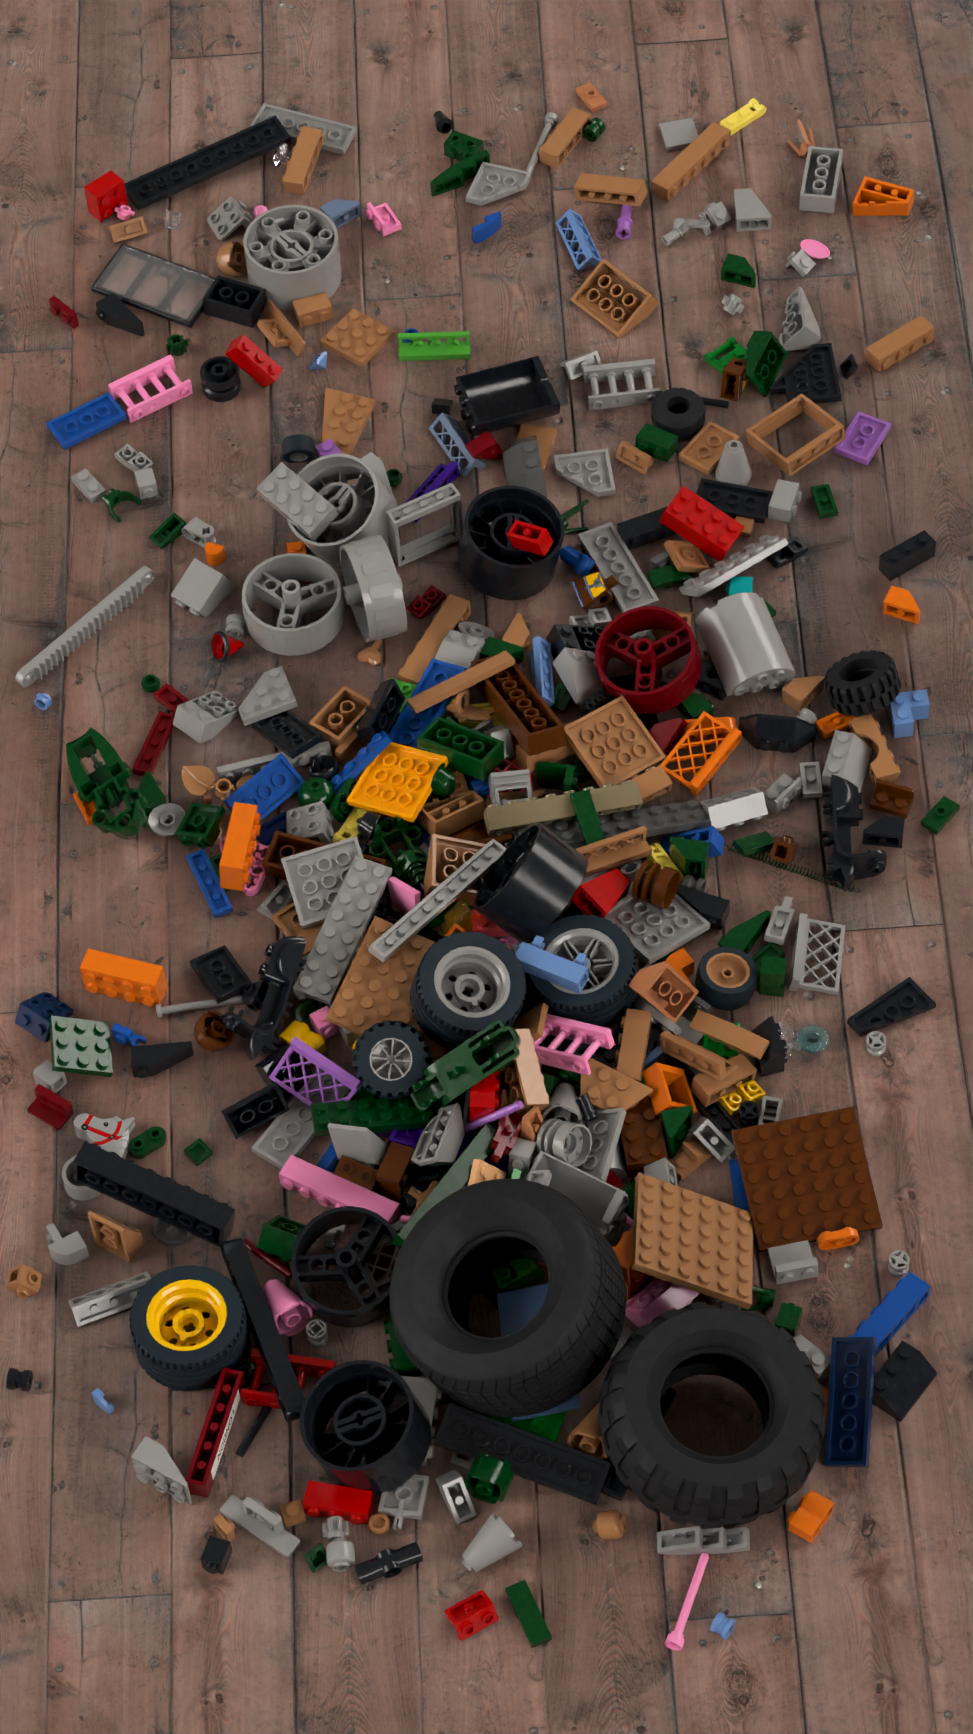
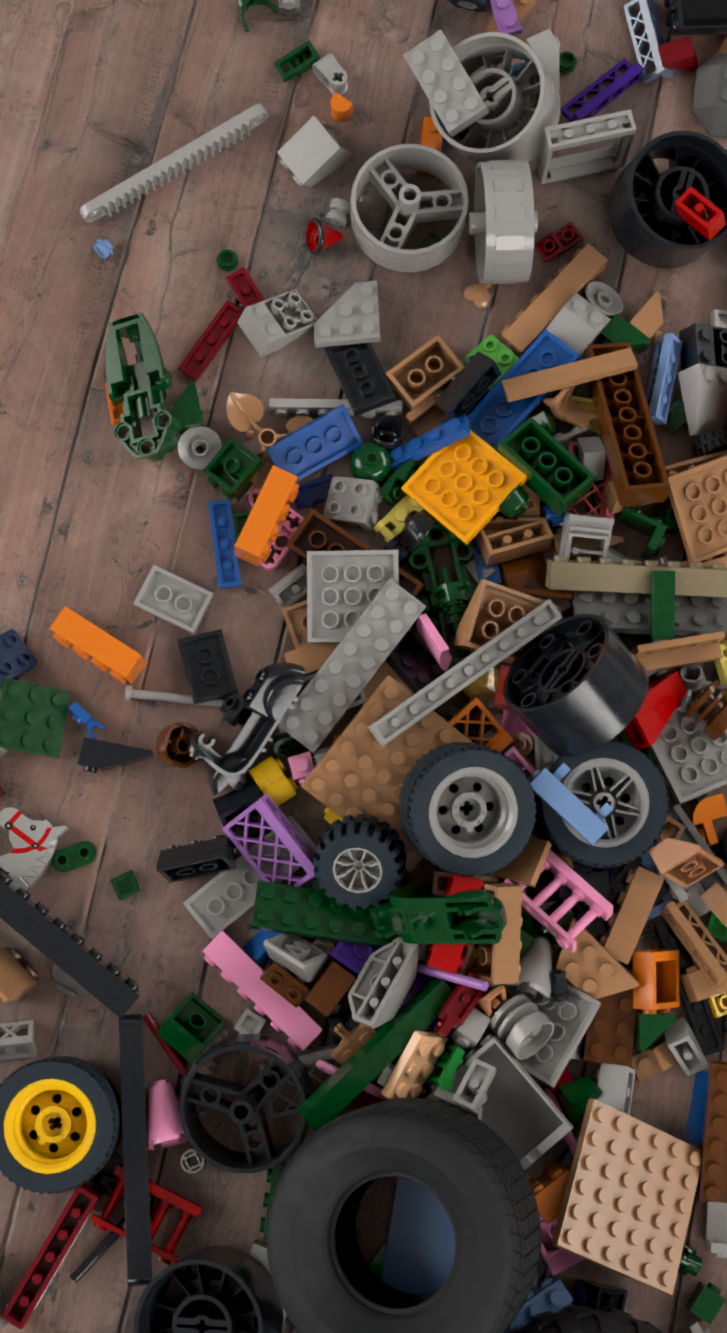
camera: 10 degrees right, 25 degrees up
(177, 933) = (173, 599): none -> light grey plate

